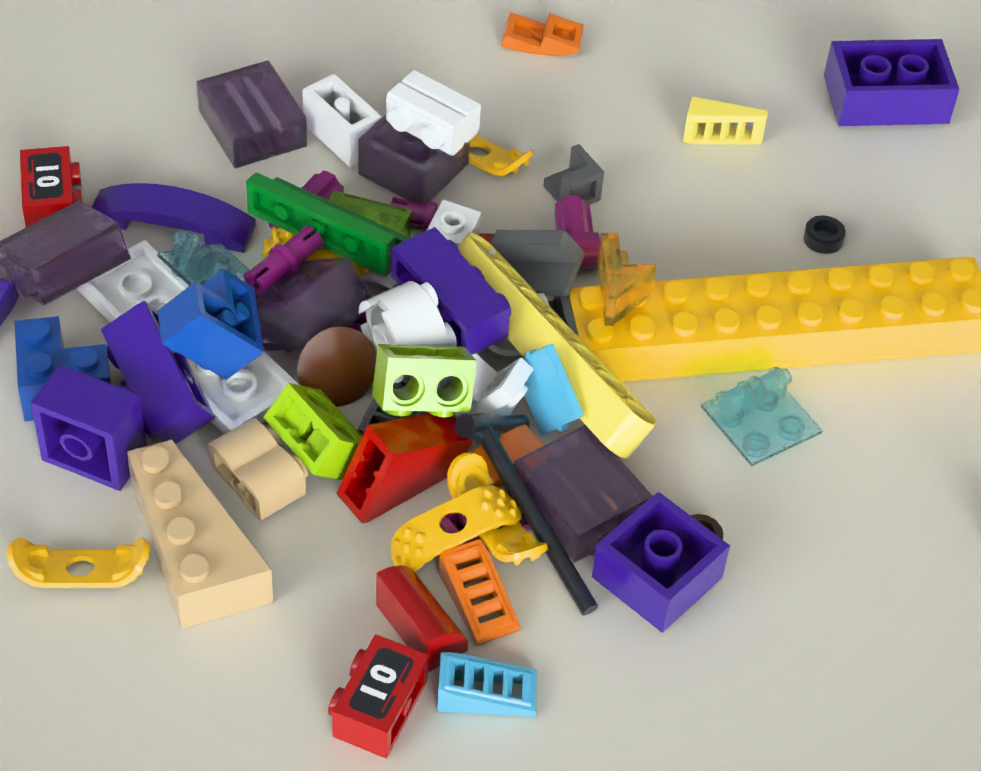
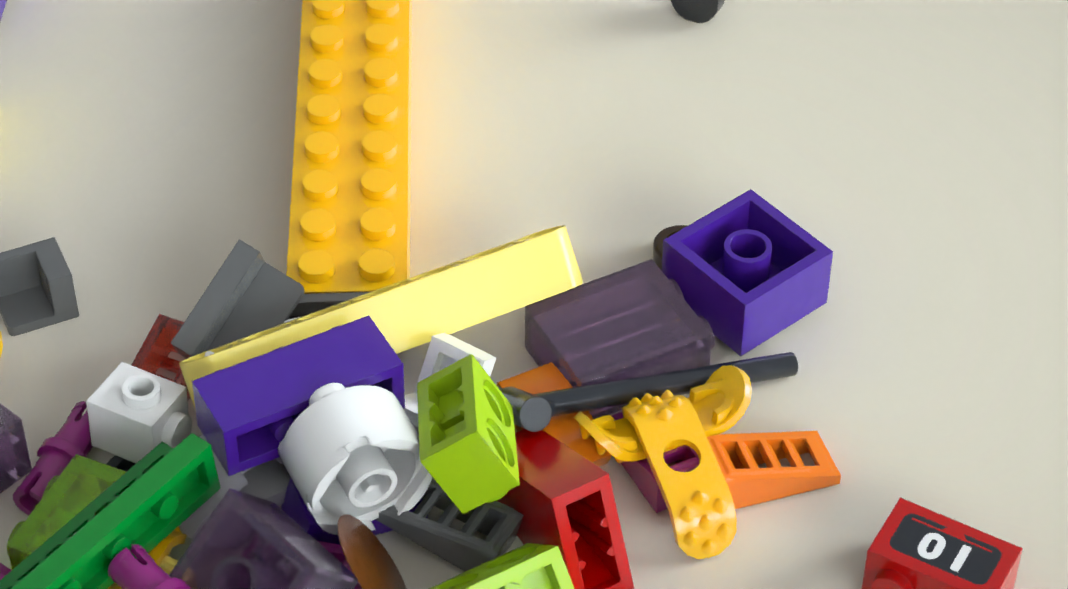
camera: 80 degrees left, 5 degrees down
(417, 614) = (815, 525): red brick -> none
(468, 700) = (917, 442): medium azure slope -> none
(550, 391) = (476, 315): medium azure piece -> none
(575, 218) = (143, 296): magenta piece -> none
(621, 284) = (322, 222): clear yellow slope -> none
(761, 416) = (498, 168): clear light blue hinge -> none
(824, 234) = (194, 72): black tile -> none

